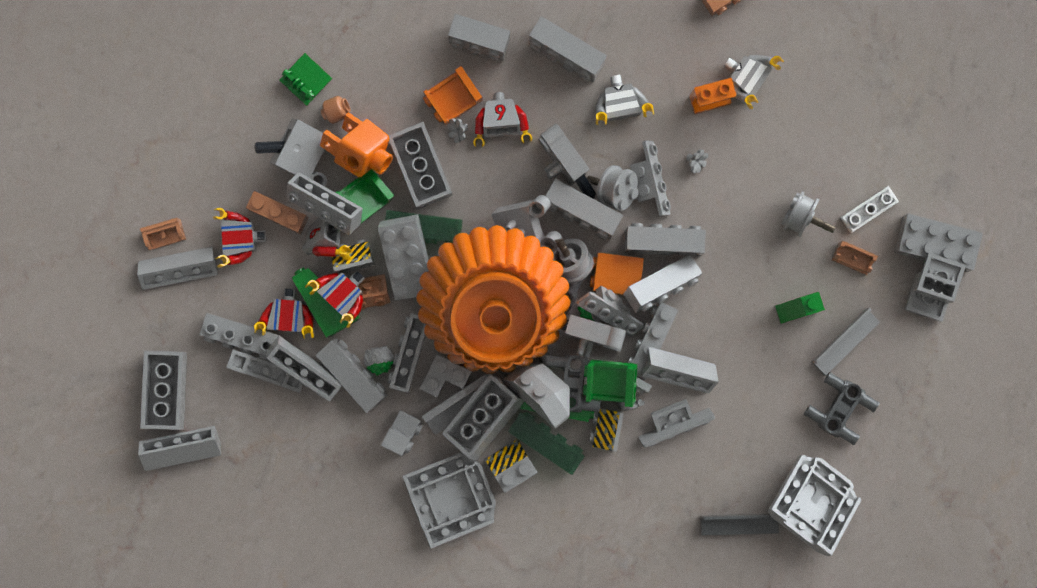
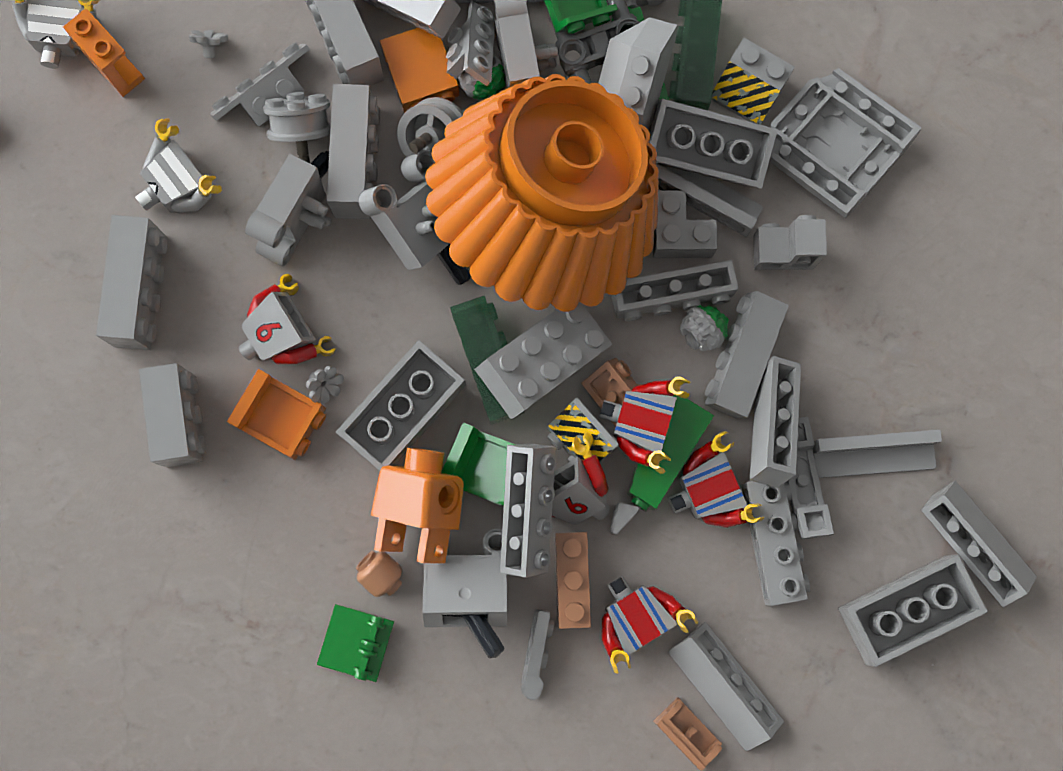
camera: 120 degrees left, 5 degrees down
(248, 173) = (536, 655): none -> light grey hinge
(259, 420) = (876, 453): none -> light grey panel
(298, 259) = (621, 516): none -> light grey slope

